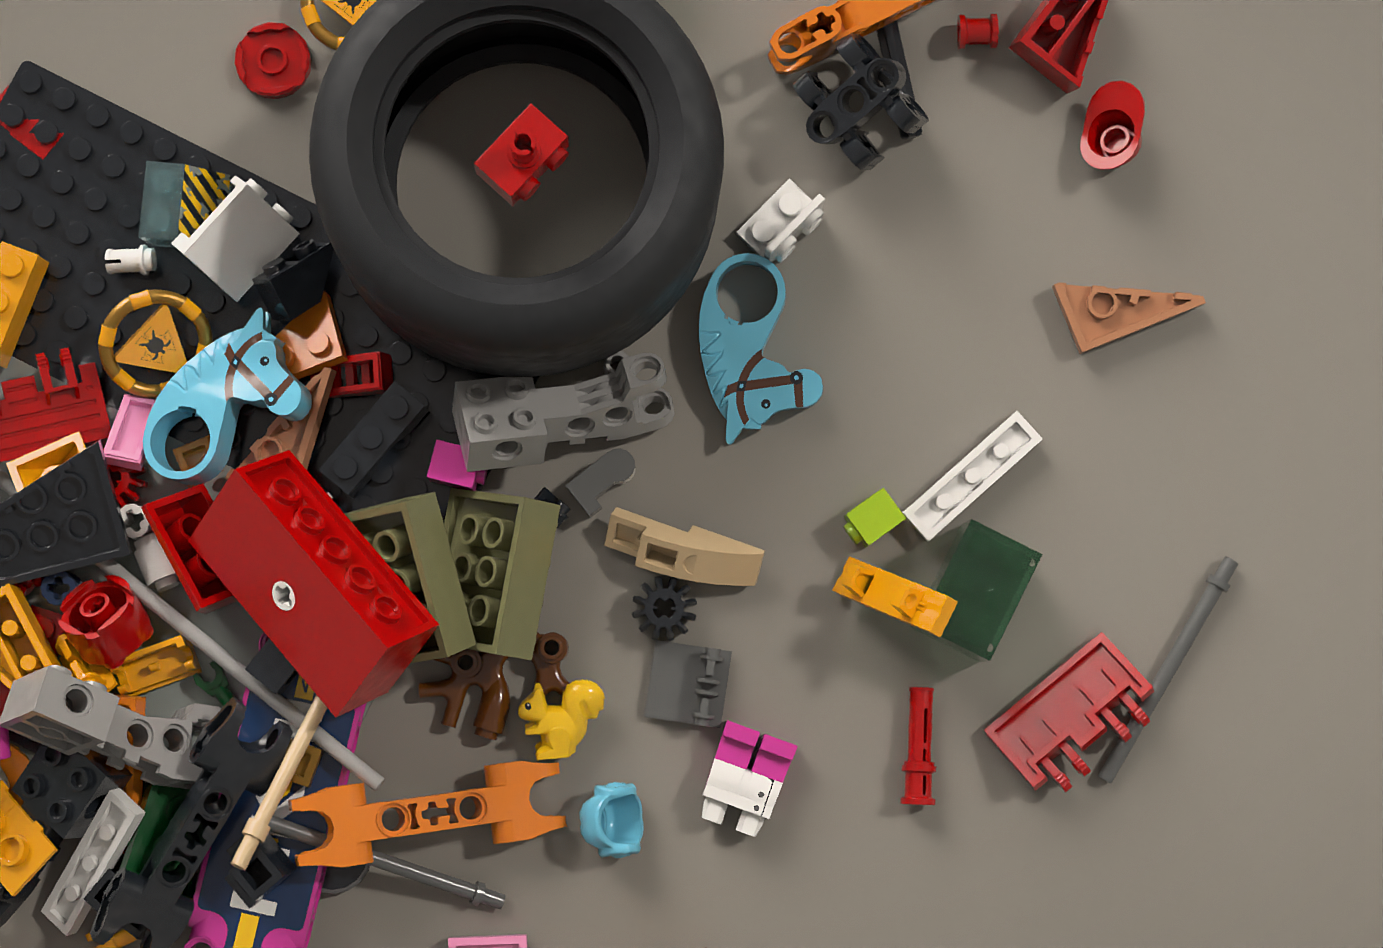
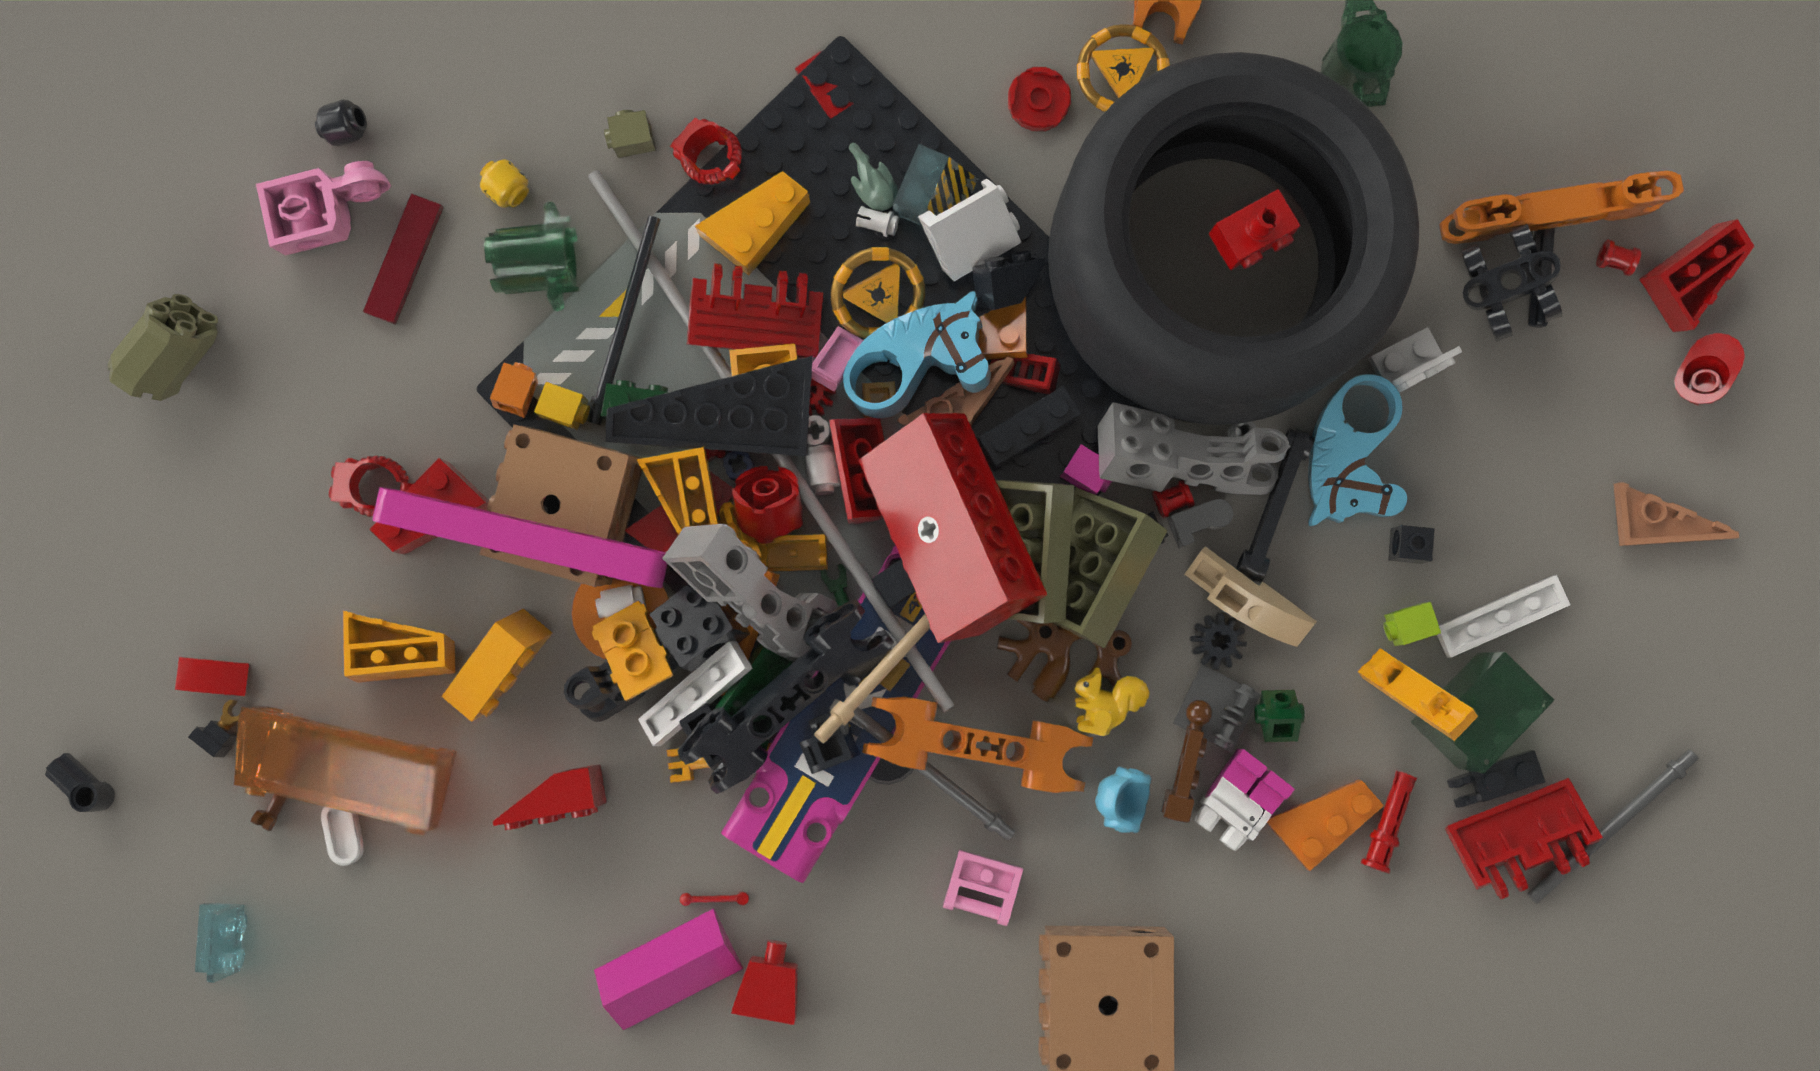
camera: 20 degrees right, 0 degrees up
(115, 222) = (876, 185): none -> sand green piece
(564, 465) = (1173, 499): none -> red bush
(674, 802) = (1178, 801): none -> reddish brown plate
(683, 361) = (1254, 562): none -> black piece
(757, 669) = (1279, 715): none -> dark green brick
(845, 429) = (1411, 544): none -> black brick
(847, 771) = (1325, 822): none -> orange wing
(1026, 657) = (1501, 779): none -> black hinge

